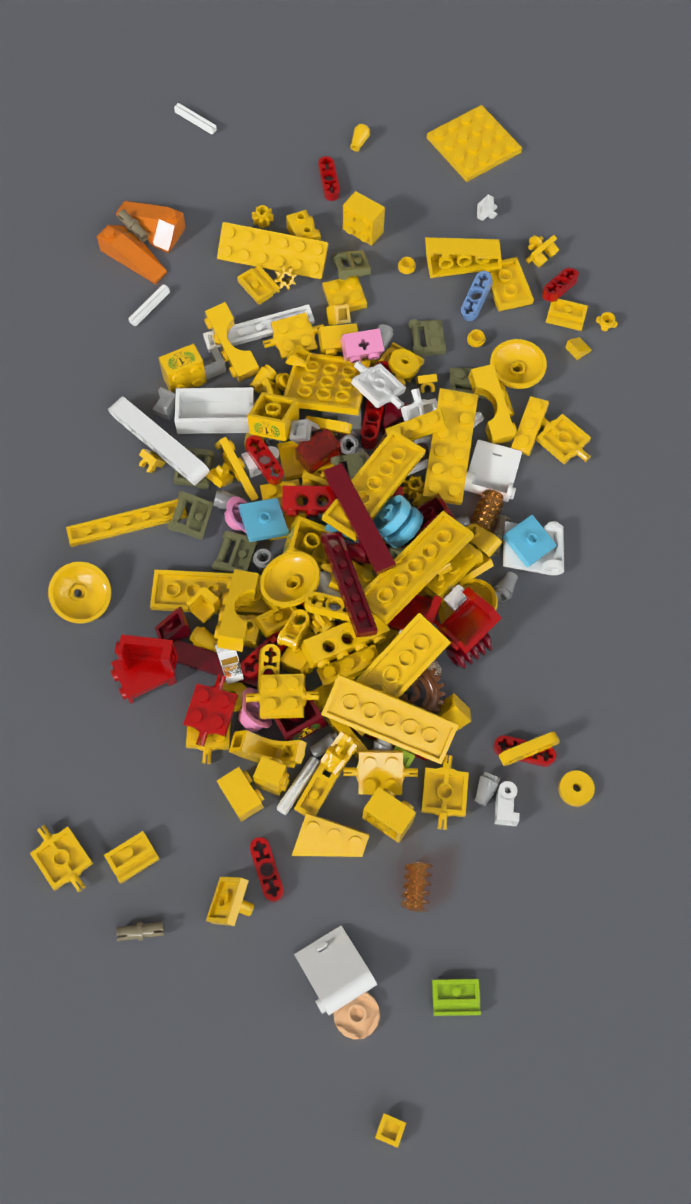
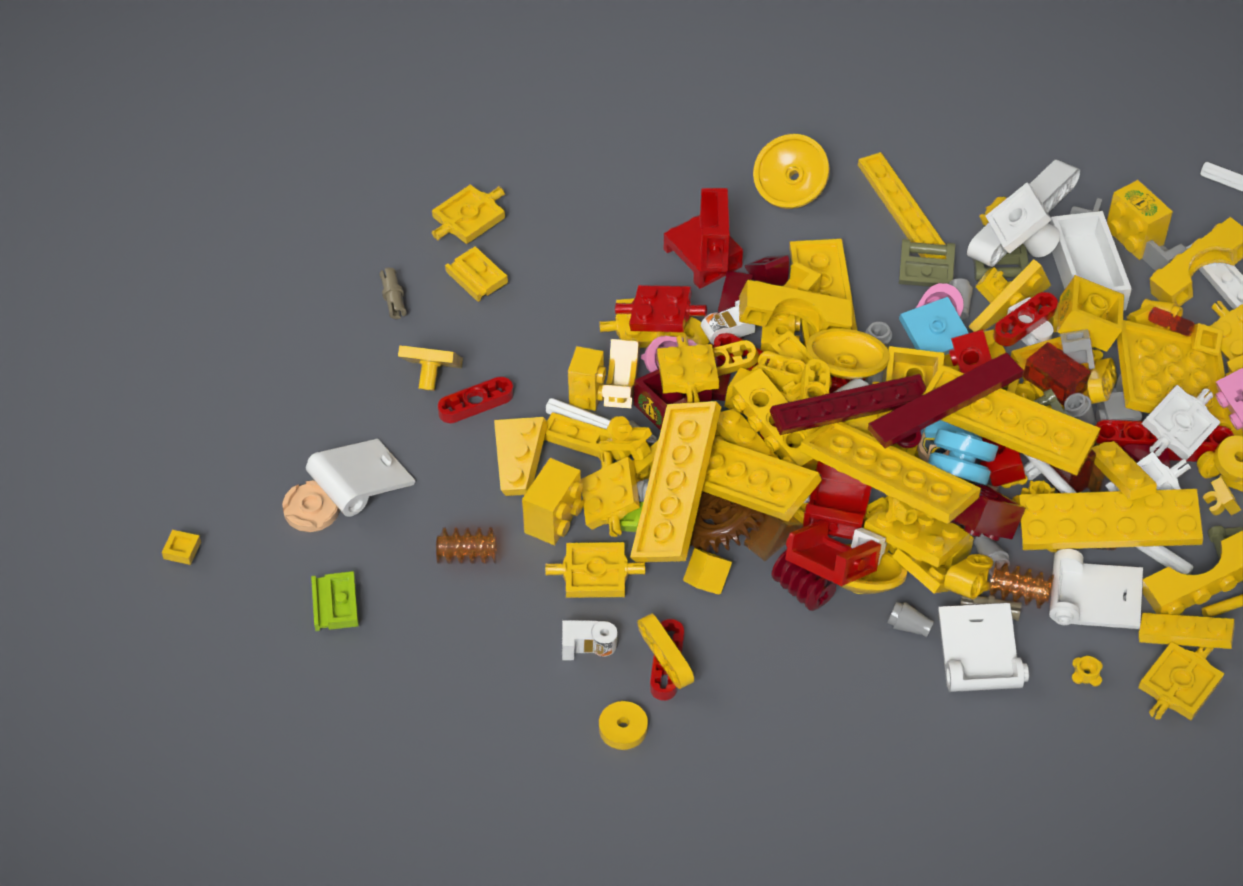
camera: 85 degrees right, 15 degrees down
(180, 446) = (1024, 221): none -> white plant
(240, 793) = (553, 358): yellow brick -> none
(241, 555) = (883, 311): olive plate -> none
(280, 374) = (1176, 324): none -> clear red piece
(486, 788) = (608, 612): light grey cone -> none
(529, 541) = (986, 638): medium azure plate -> none
(555, 486) = (1090, 664): none -> yellow plate

